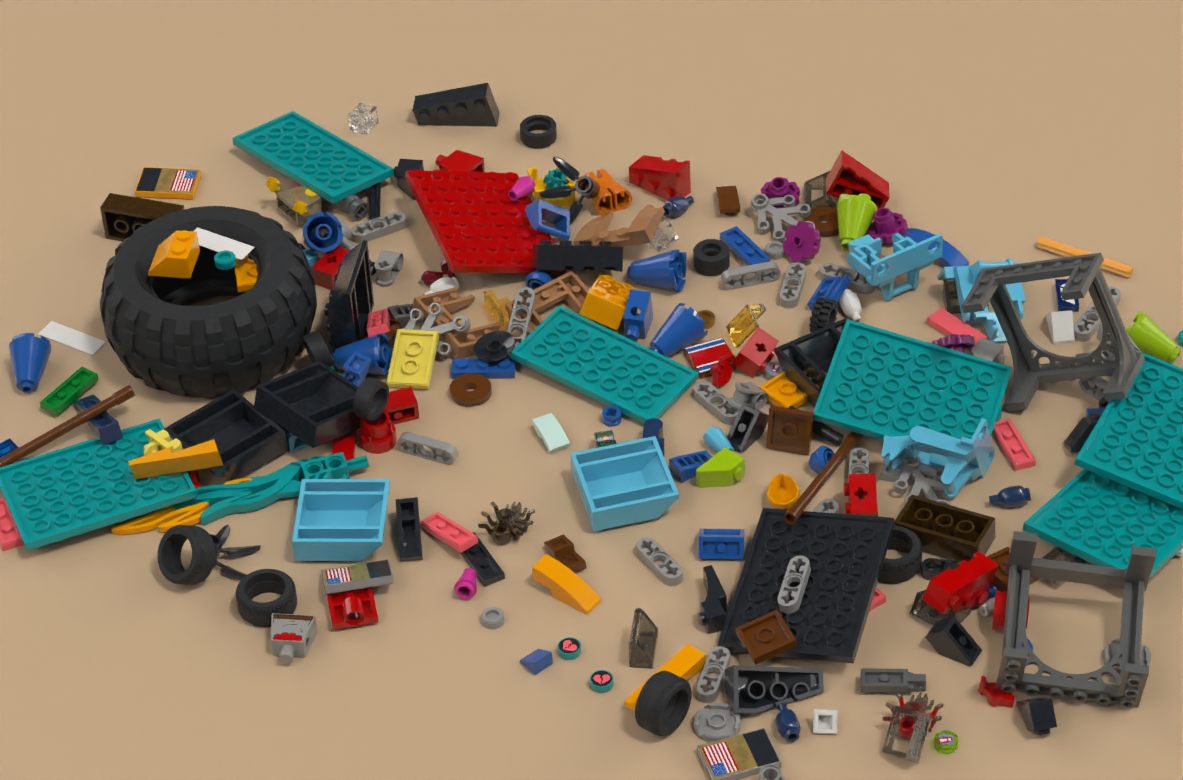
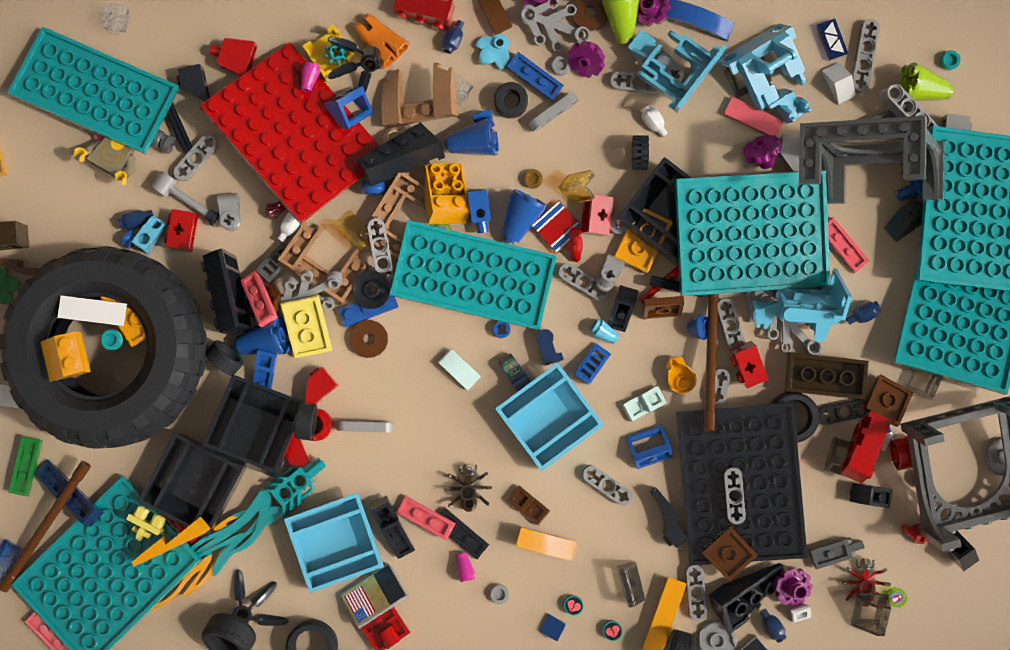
camera: 25 degrees left, 45 degrees up
(322, 232) = (156, 208): blue cone -> none
(714, 222) = (492, 52): none -> medium azure plate
(721, 470) = (620, 365): lime slope -> none
(737, 509) = (644, 404): none -> light aqua slope
(794, 291) = (586, 95): light grey beam -> none
(827, 693) = (793, 586): none -> magenta plant
(830, 288) = (631, 113): blue plate -> none

